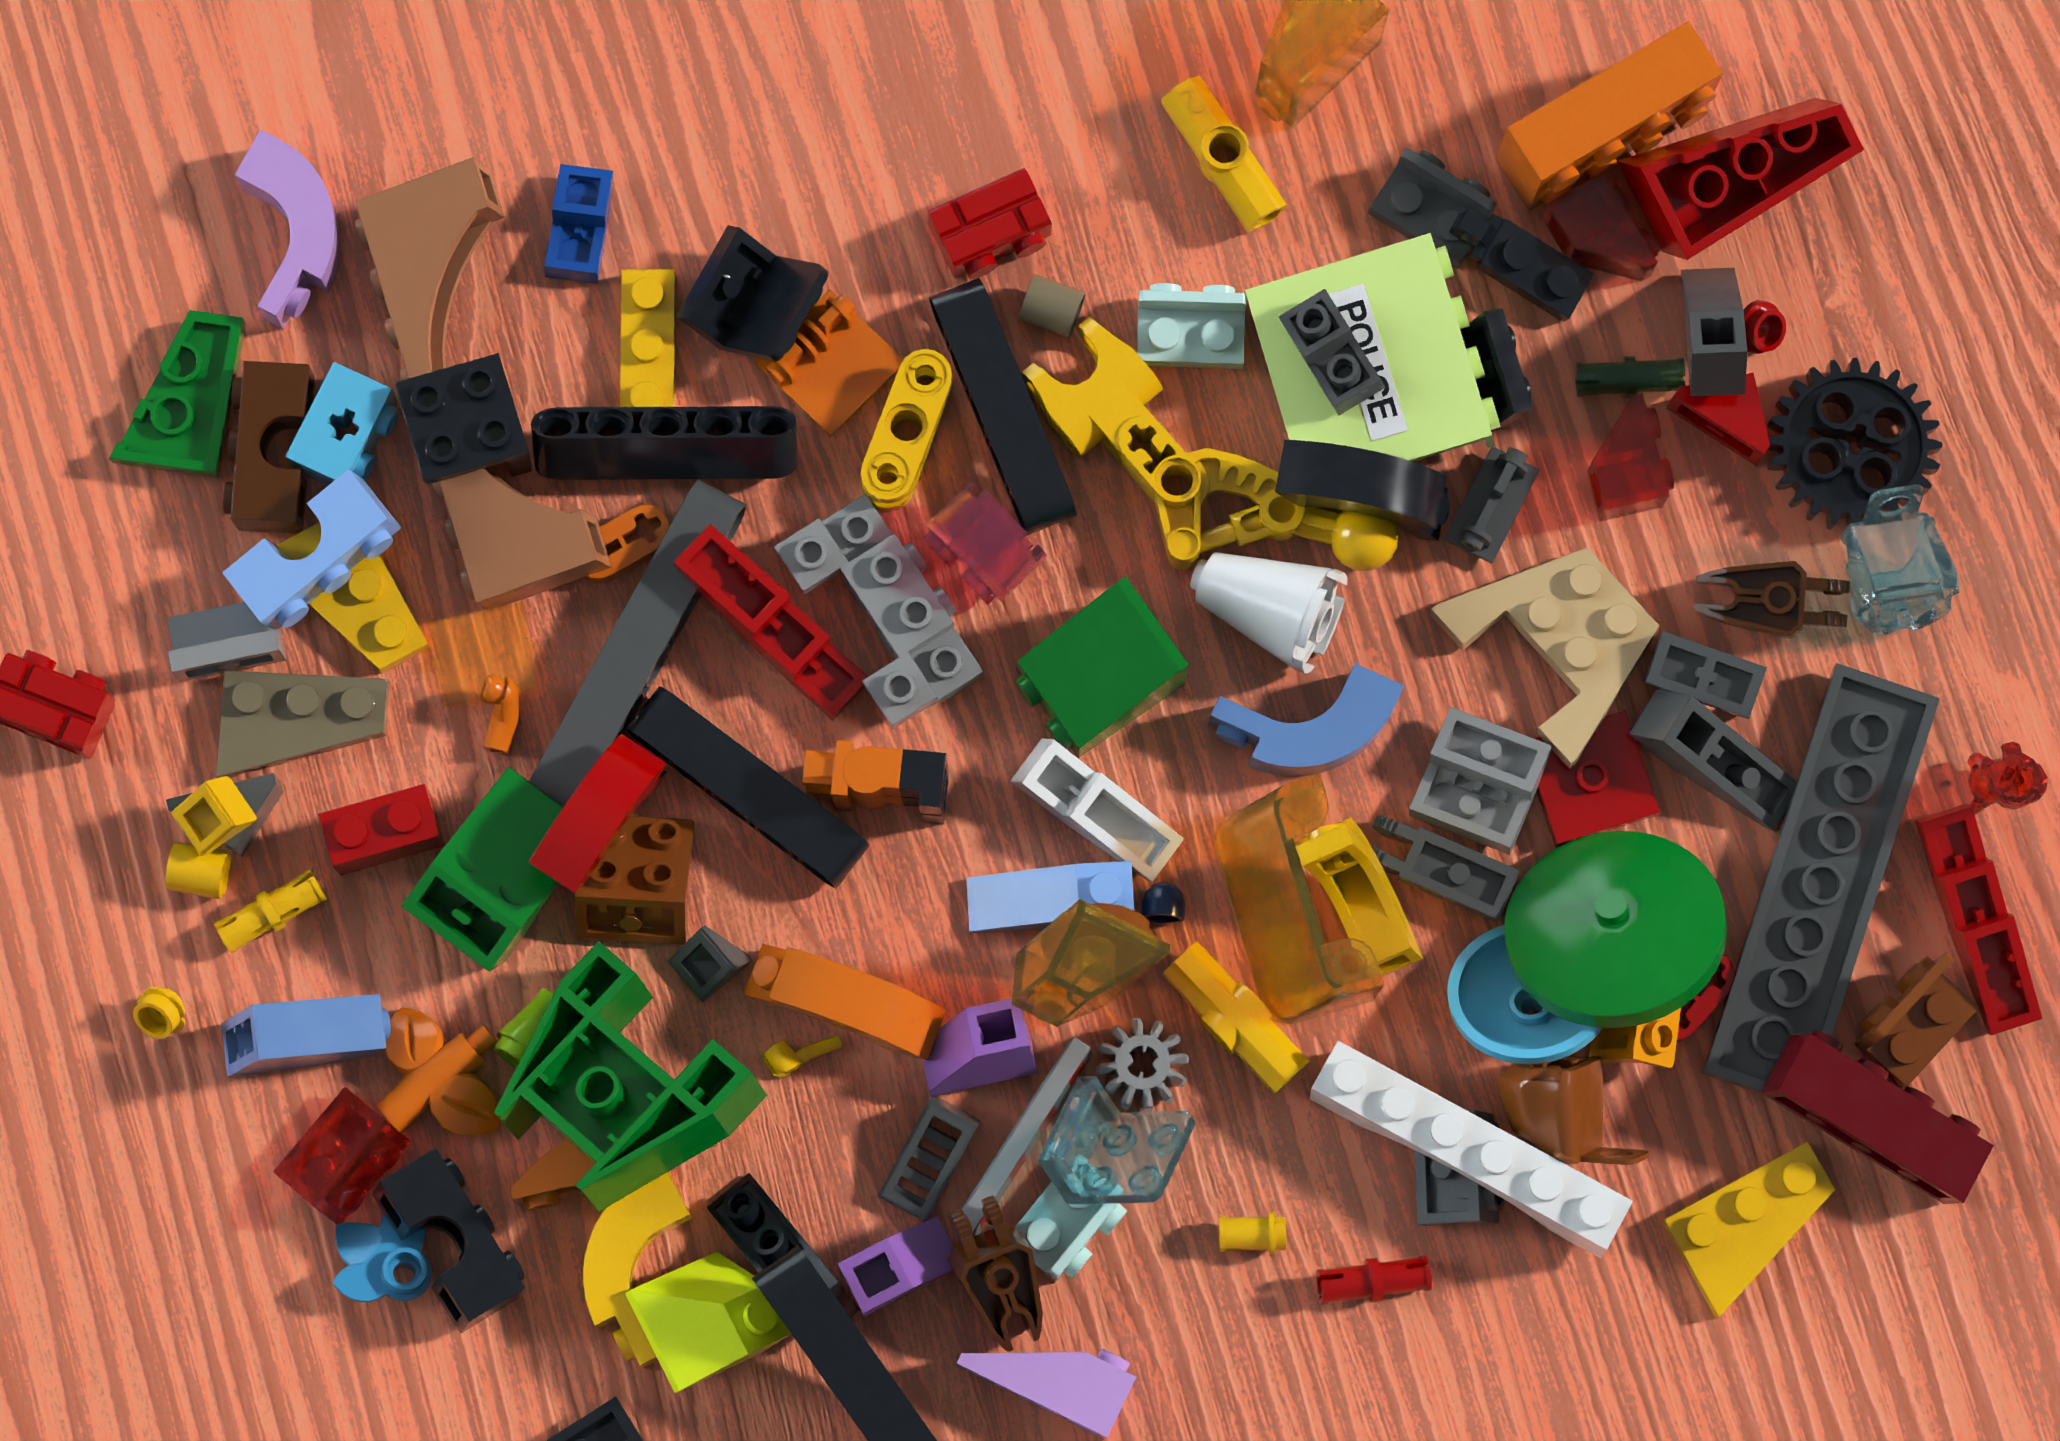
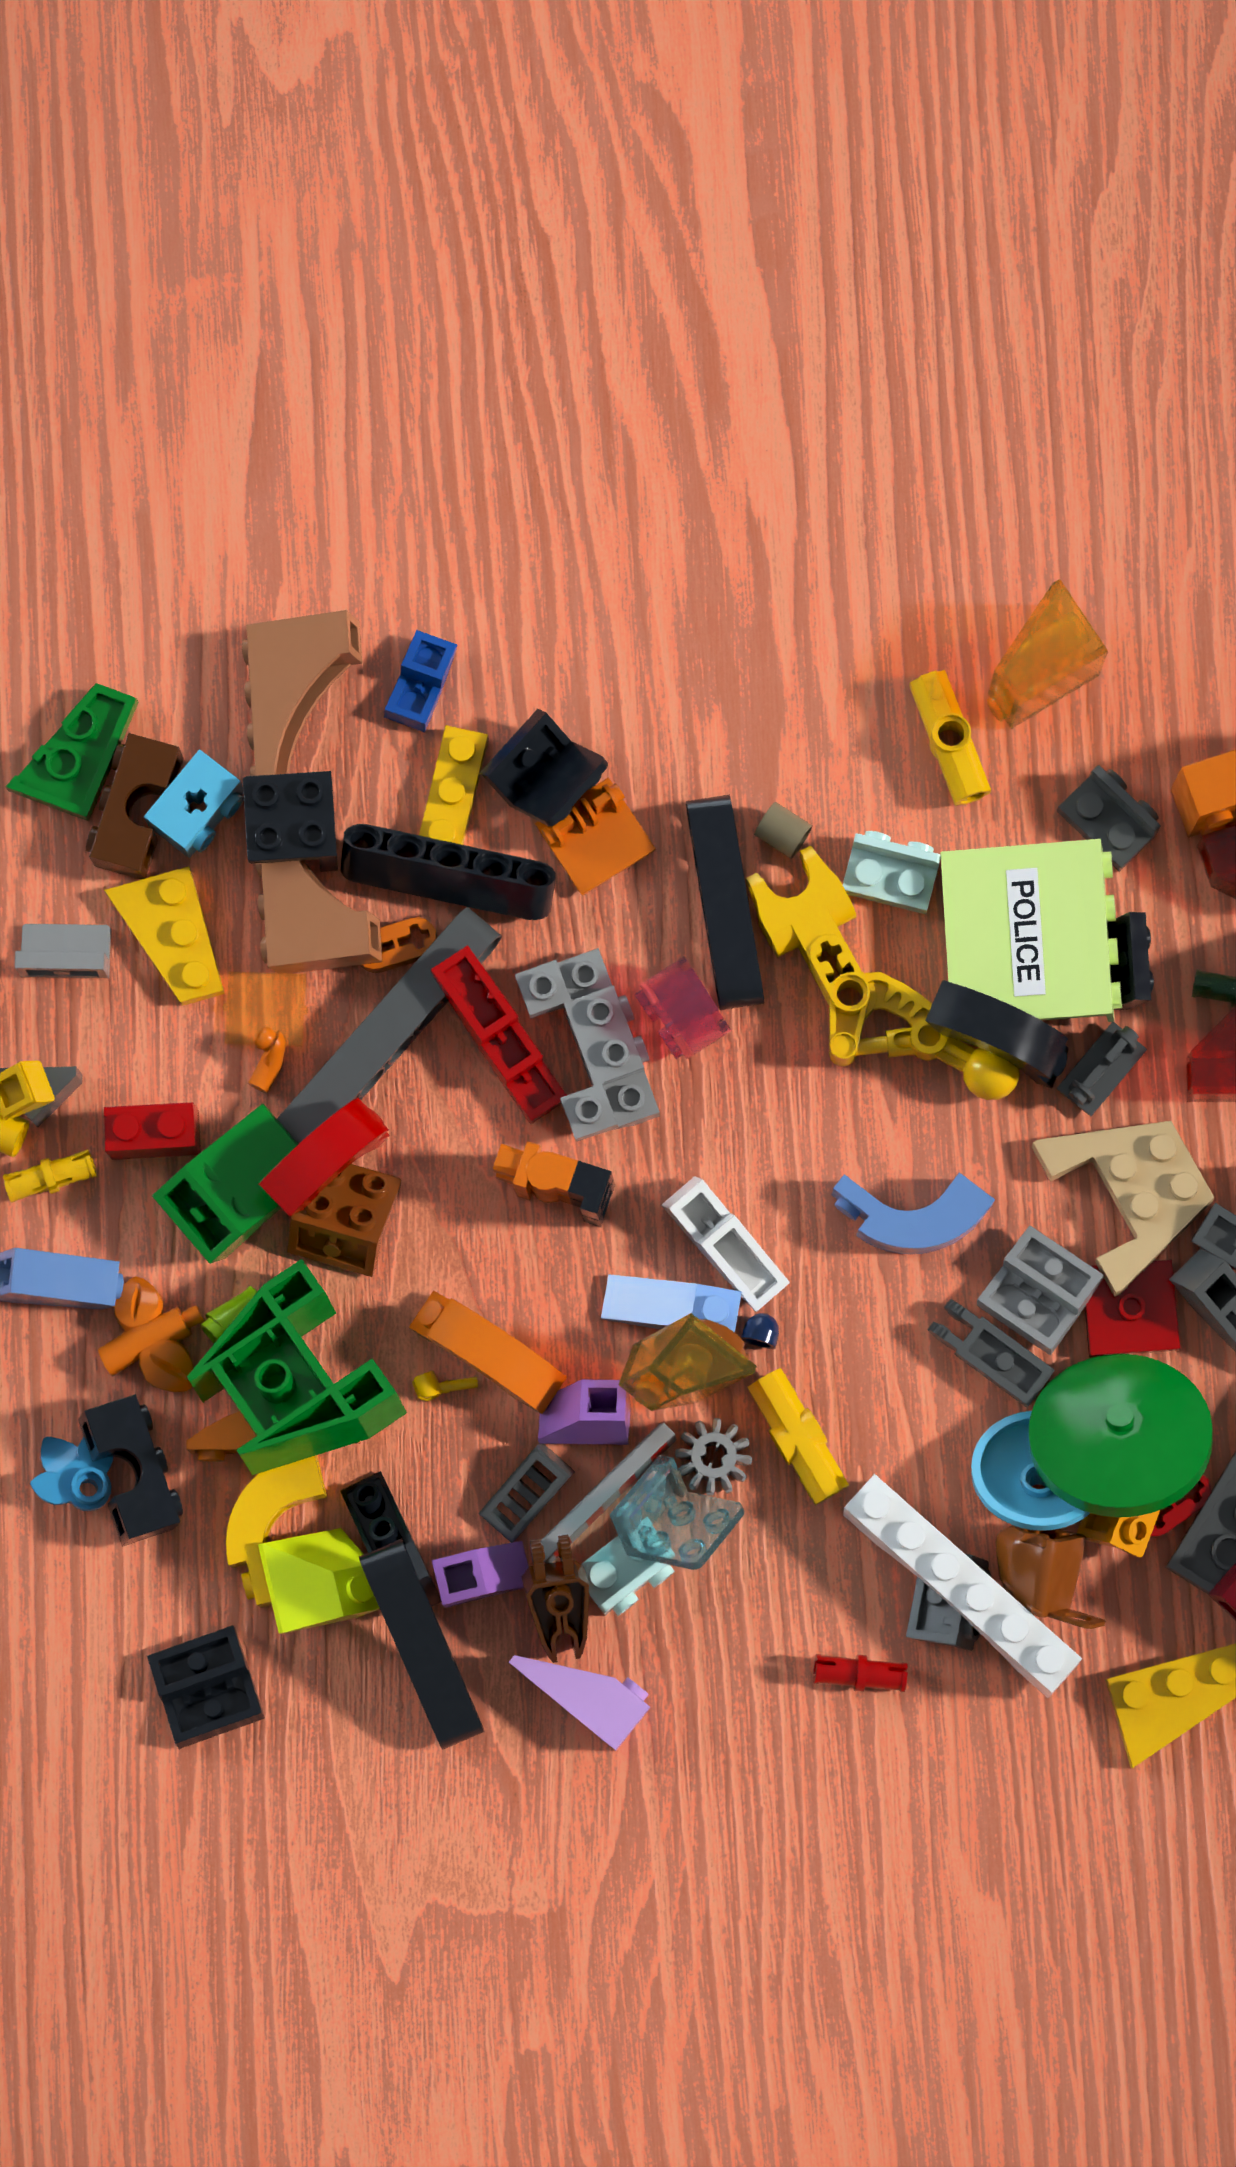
camera: 20 degrees right, 0 degrees up
(292, 186) = (198, 599): lavender arch -> none
(295, 715) = (101, 1023): dark tan wing -> none
(342, 1156) = (61, 1384): clear red bracket -> none
(351, 528) = (182, 886): light blue arch -> none
(708, 962) = (386, 1295): dark grey slope -> none
(747, 787) = (450, 1162): black beam -> none
(906, 402) = (647, 881): yellow piece -> none
(990, 225) = (748, 754): red brick -> none
(1101, 669) = (754, 1131): green slope -> none
(1253, 1233) = (771, 1613): yellow pin -> none
(1273, 603) = (905, 1109): white cone -> none
(1275, 913) = (850, 1397): clear yellow windscreen -> none
(1331, 352) = (998, 917): dark grey slope -> none
(1360, 892) = (921, 1362): yellow arch -> none
(1523, 263) = (1172, 879): black hinge -> none

